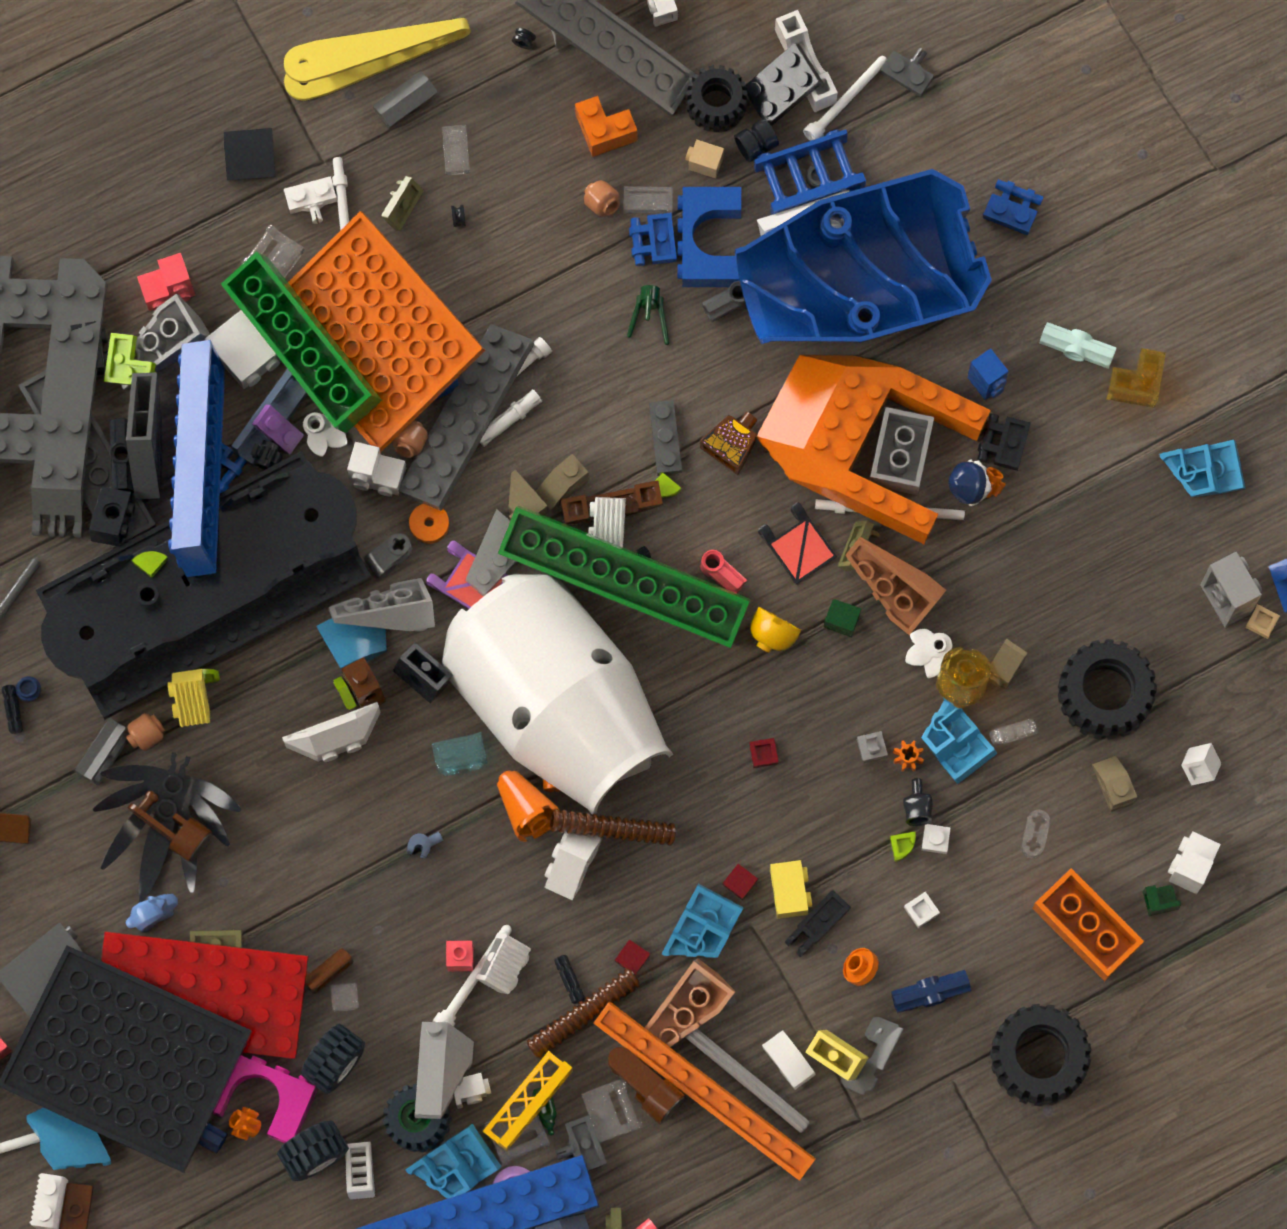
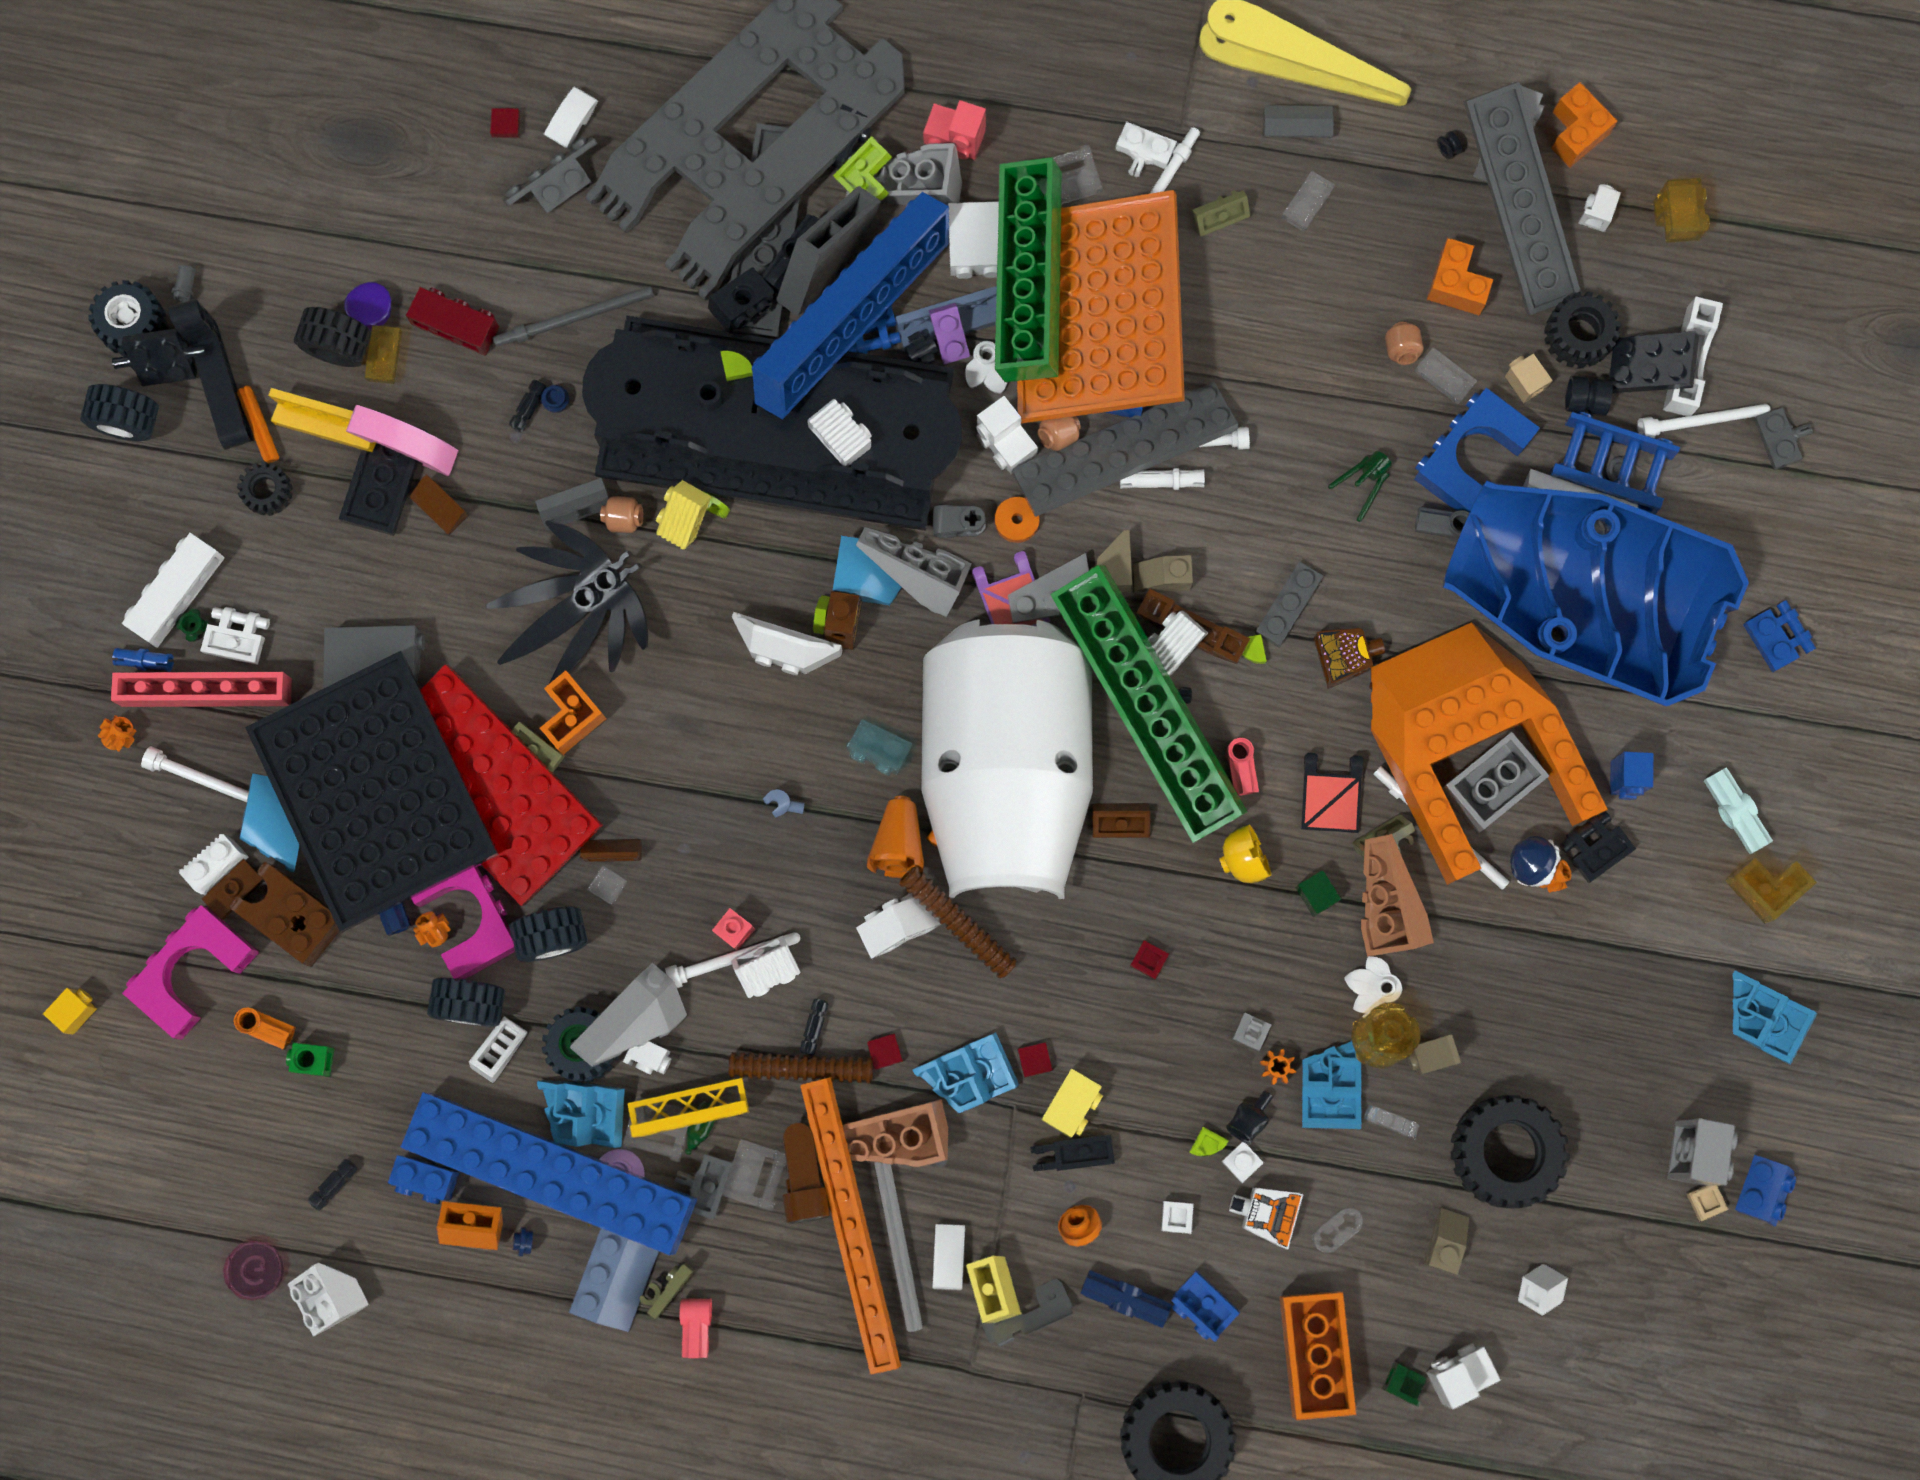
camera: 40 degrees right, 5 degrees up
(126, 1194) = (282, 912): none -> reddish brown brick
(152, 911) = (499, 677): medium blue animal -> none
(190, 838) = (580, 640): reddish brown piece -> none
(227, 892) = (577, 714): none -> orange brick
(249, 154) = (1121, 68): black slope -> none
(263, 551) = (840, 433): none -> white brick
(422, 672) = (902, 650): black brick -> none
(458, 215) = (1262, 262): black bush -> none
(661, 239) = (1428, 422): blue plate -> none
(668, 673) = (1121, 820): none -> reddish brown slope
(981, 858) = (1269, 1214): none -> torso
(987, 952) = (1204, 1306): none -> blue bracket

